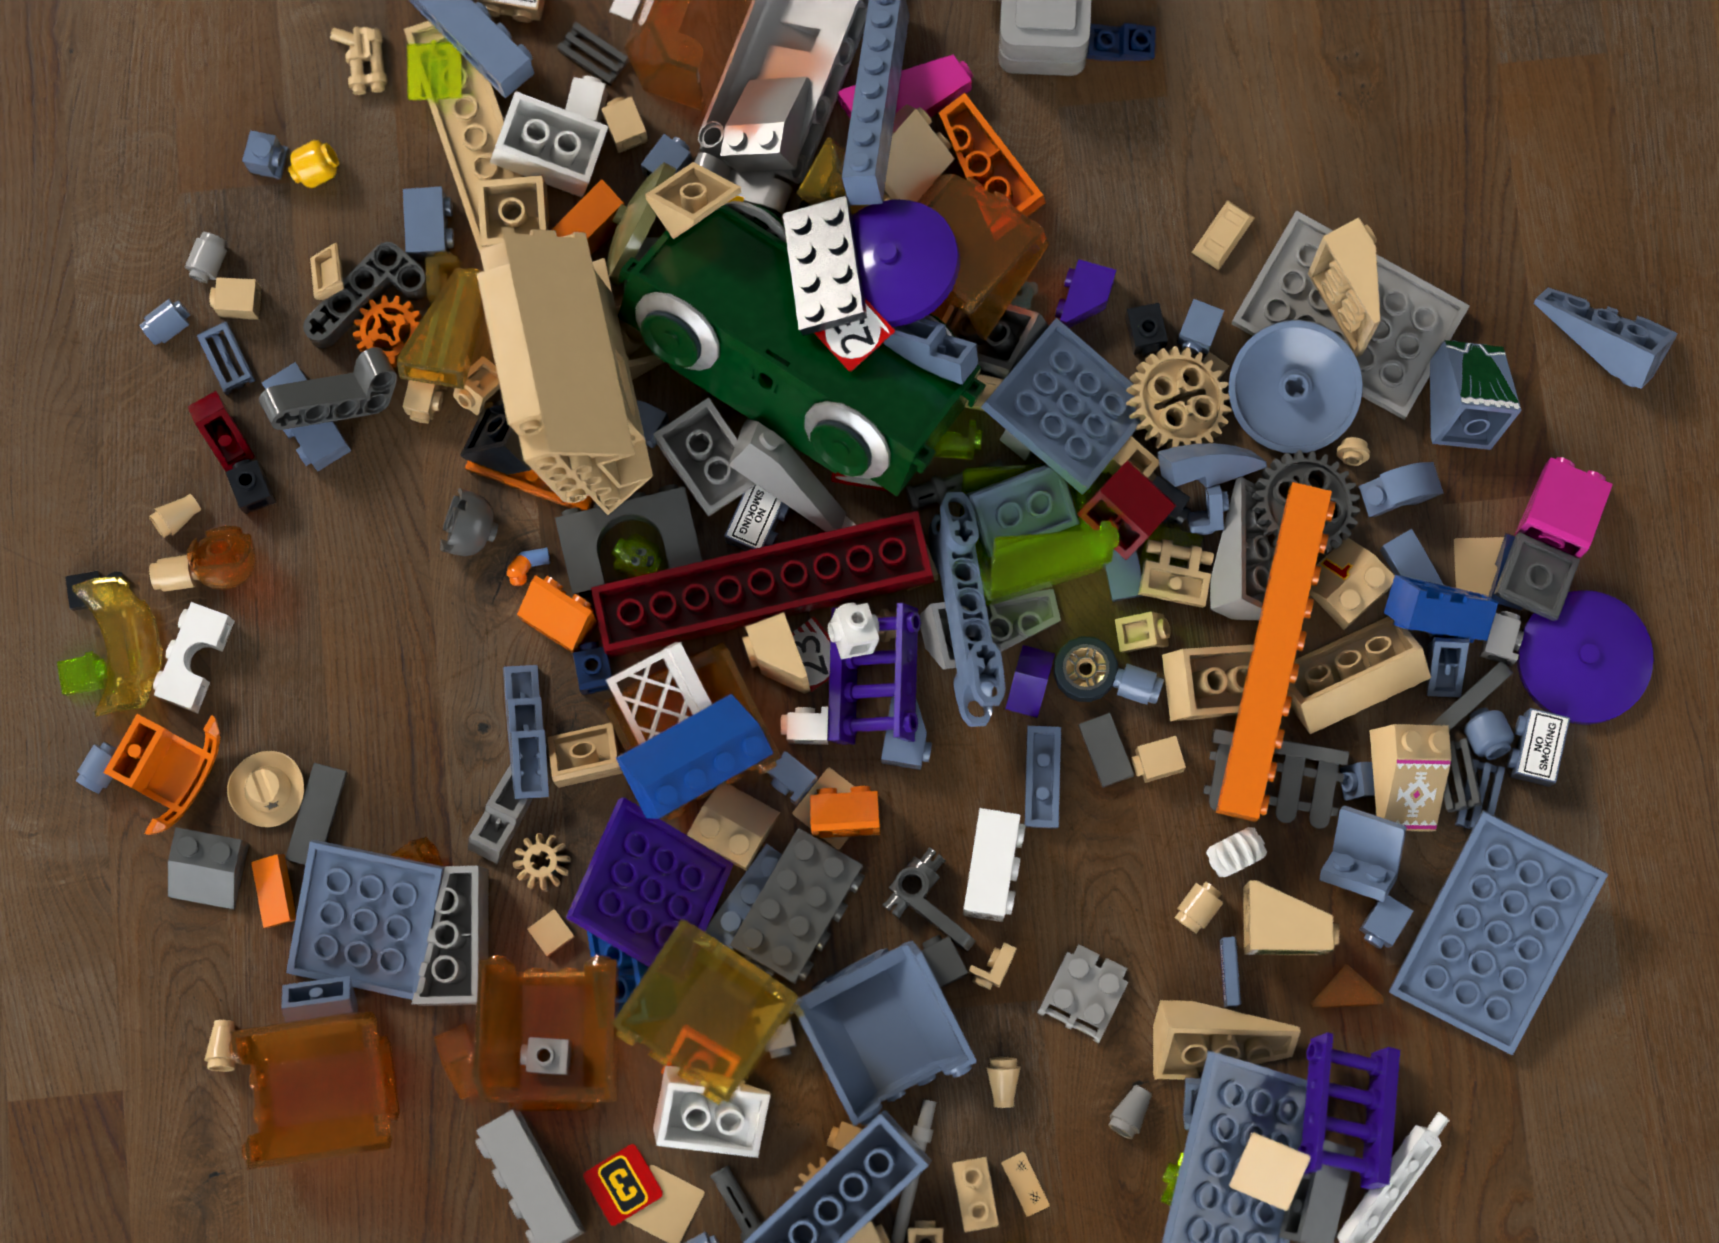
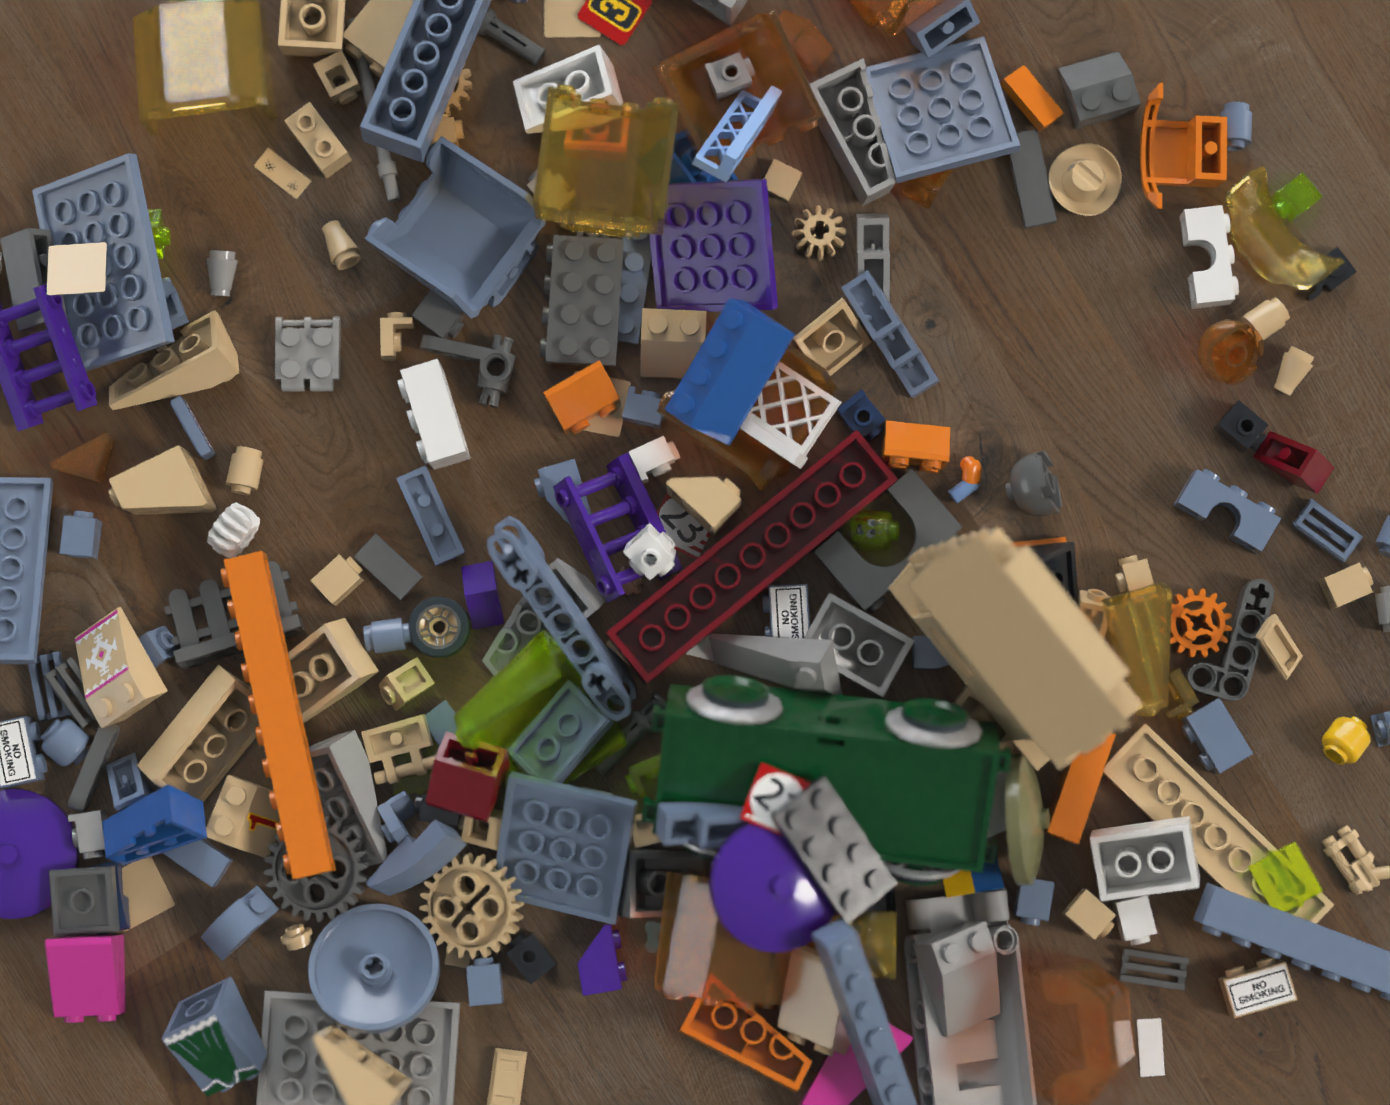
camera: 150 degrees right, 5 degrees up
(332, 397) = (1211, 533): dark grey beam -> none
(511, 203) = (1141, 776): tan slope -> none
(559, 980) = (740, 138): none -> light blue fence
(690, 197) = (983, 851): tan slope -> none
(1365, 854) = (122, 579): sand blue bracket -> none

